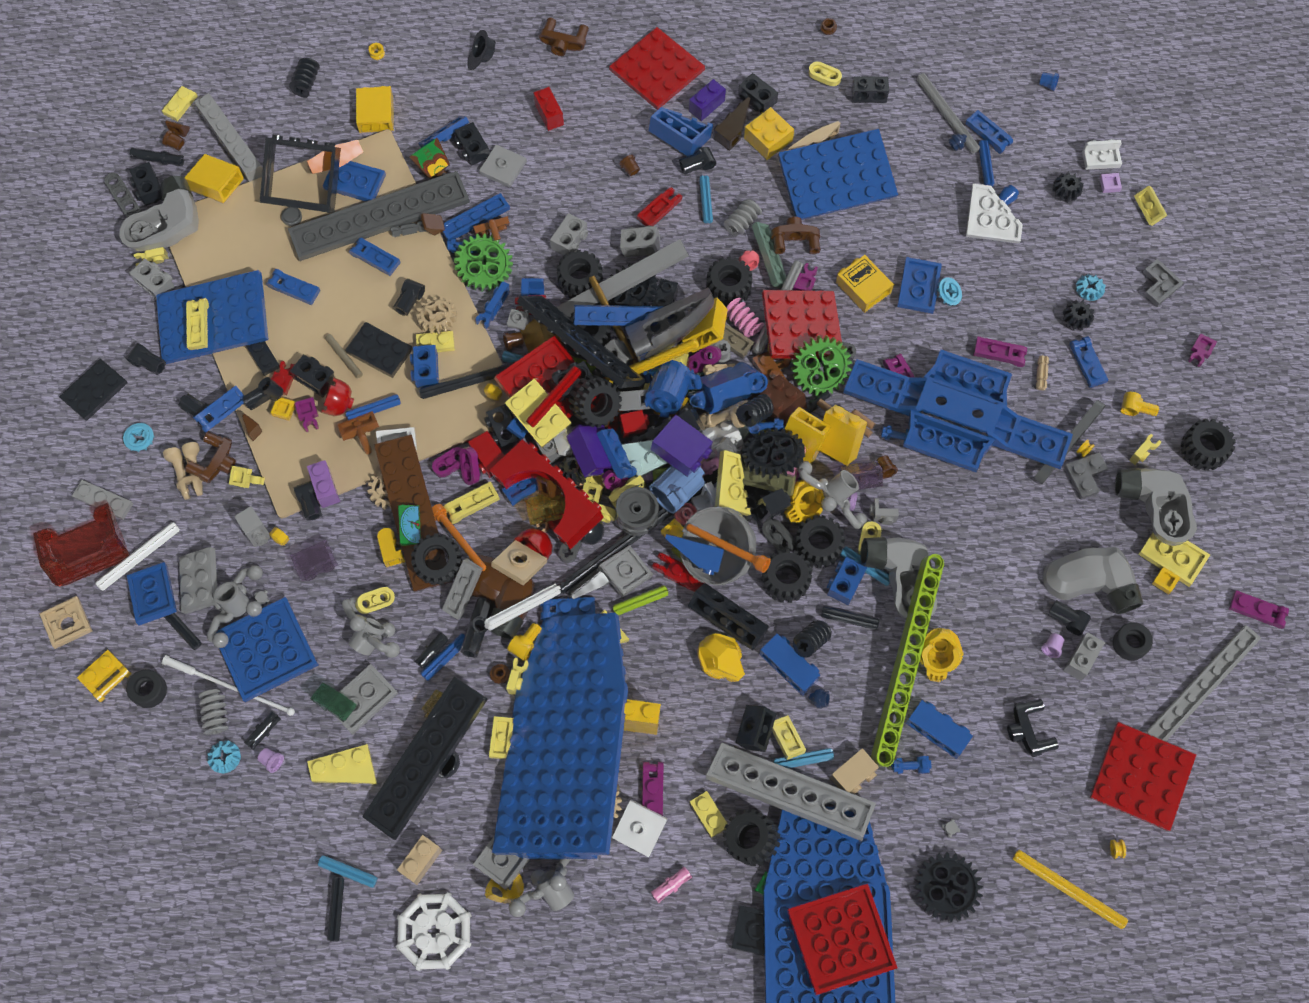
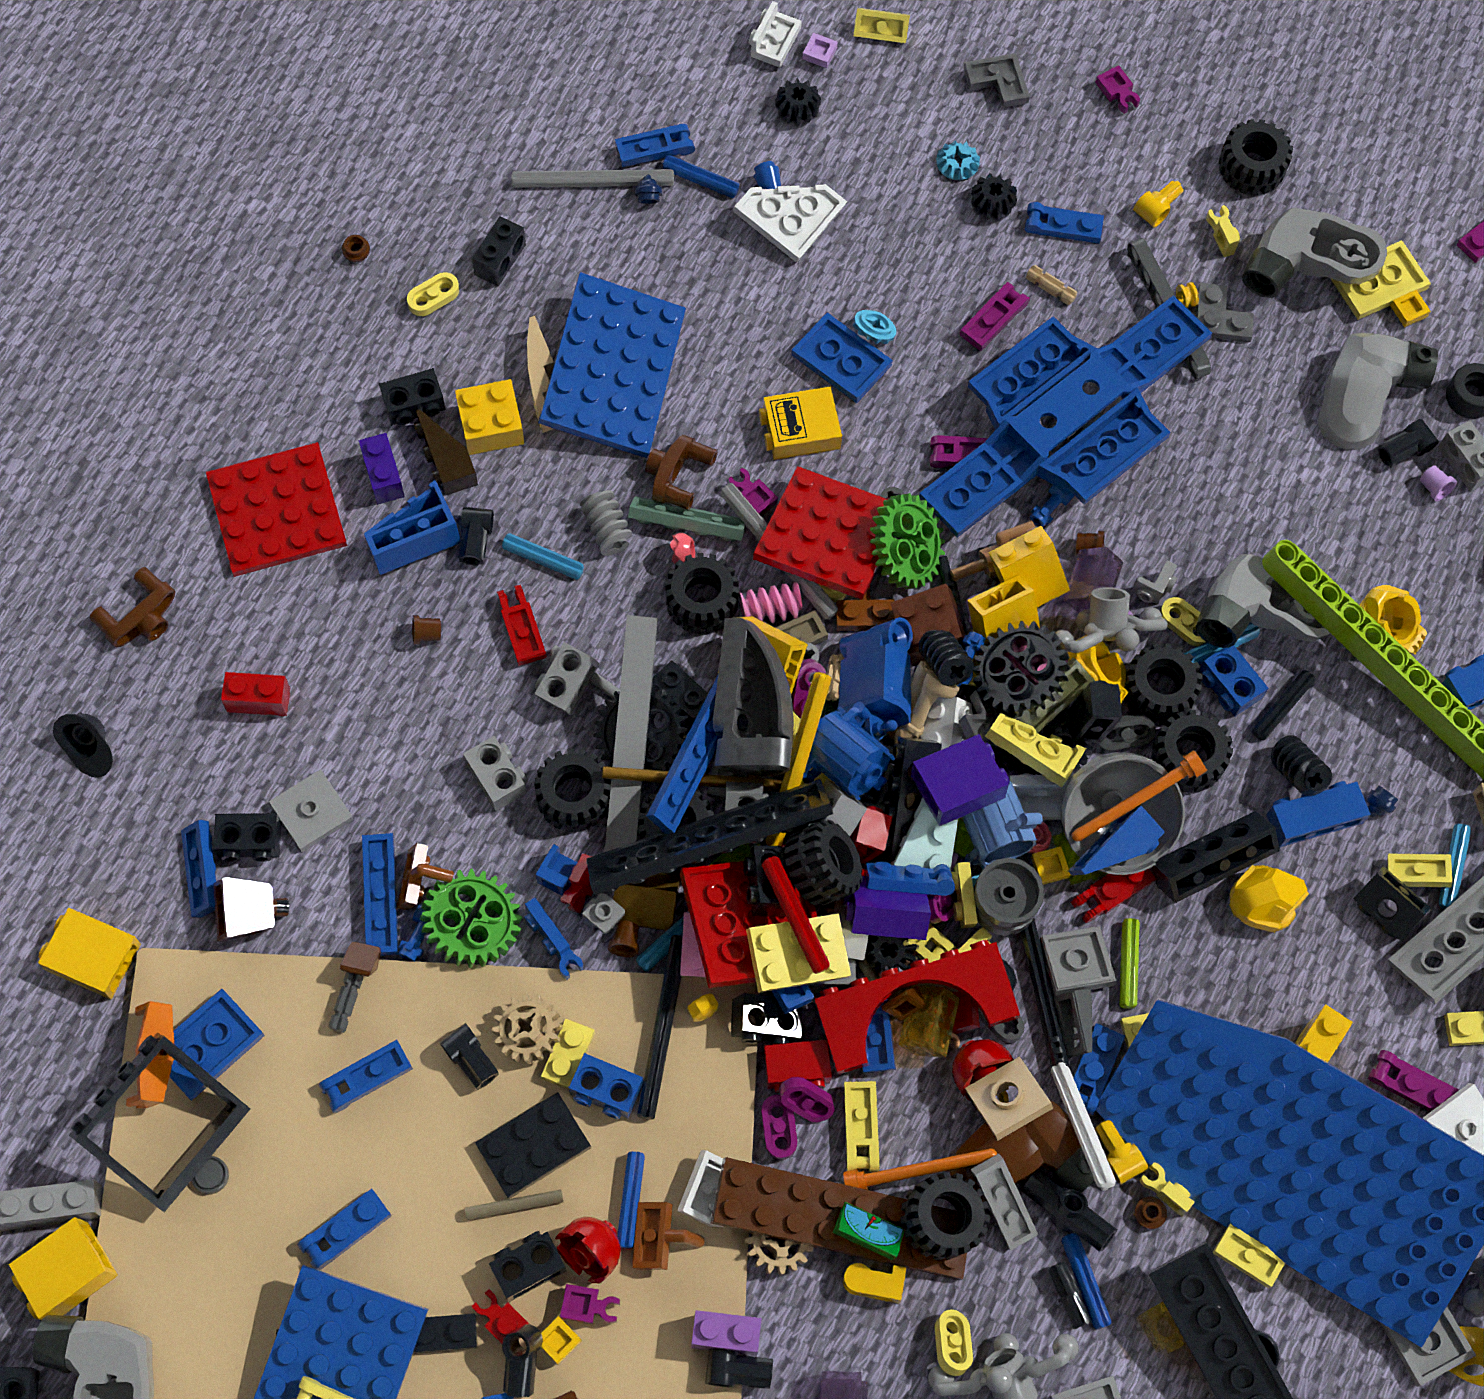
camera: 65 degrees left, 0 degrees up
(378, 215) = (295, 1039): dark grey plate -> none
(1049, 80) = (621, 30): blue piece -> none

